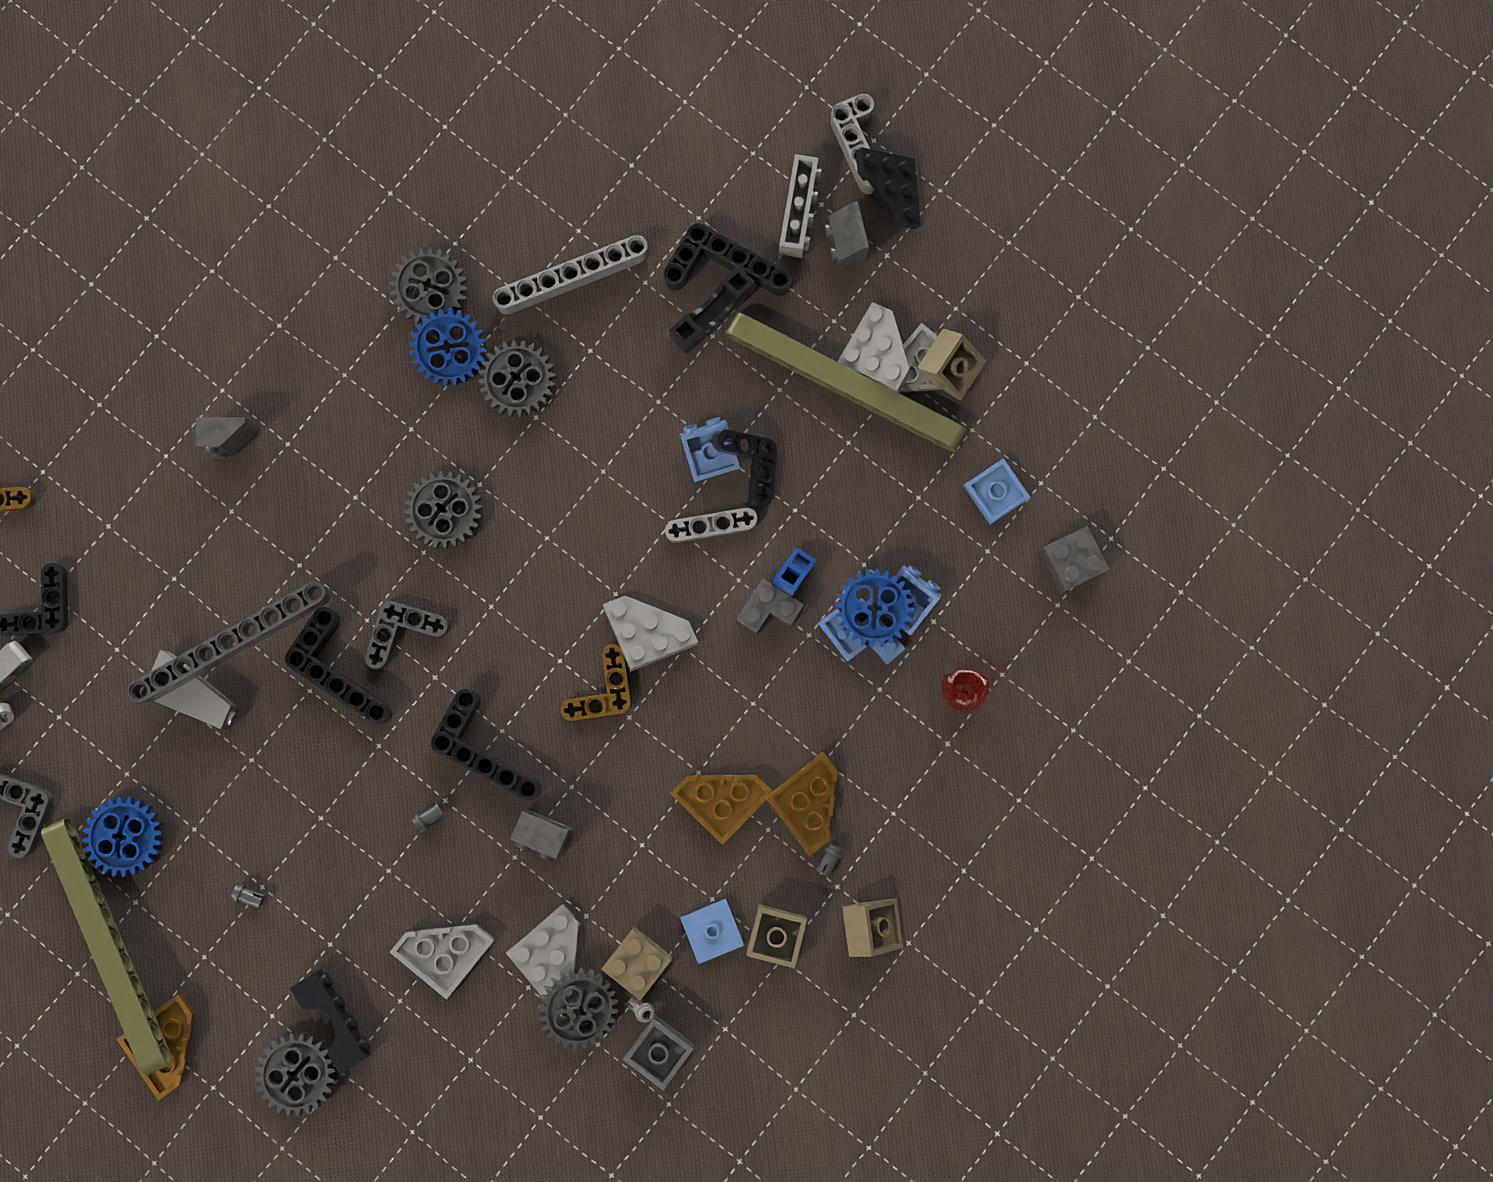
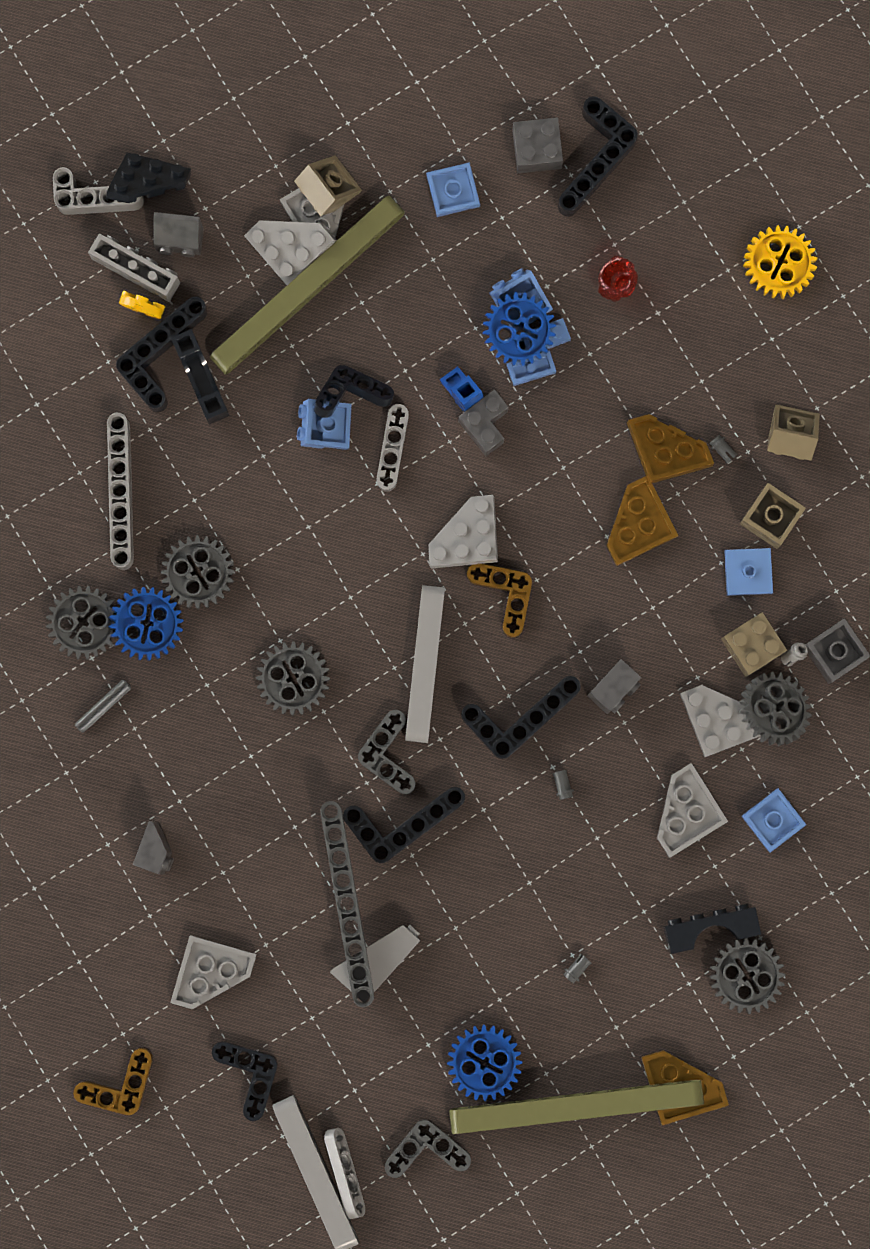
camera: 70 degrees left, 0 degrees up
(128, 533) = (209, 970): none -> light grey plate
(354, 335) = (102, 706): none -> dark grey axle
(464, 1046) = (773, 820): none -> medium blue plate
(503, 635) = (425, 664): none -> light grey beam
(762, 229) = (141, 304): none -> yellow plate
(1048, 830) = (798, 270): none -> yellow gear
(1084, 629) = (601, 159): none -> black beam

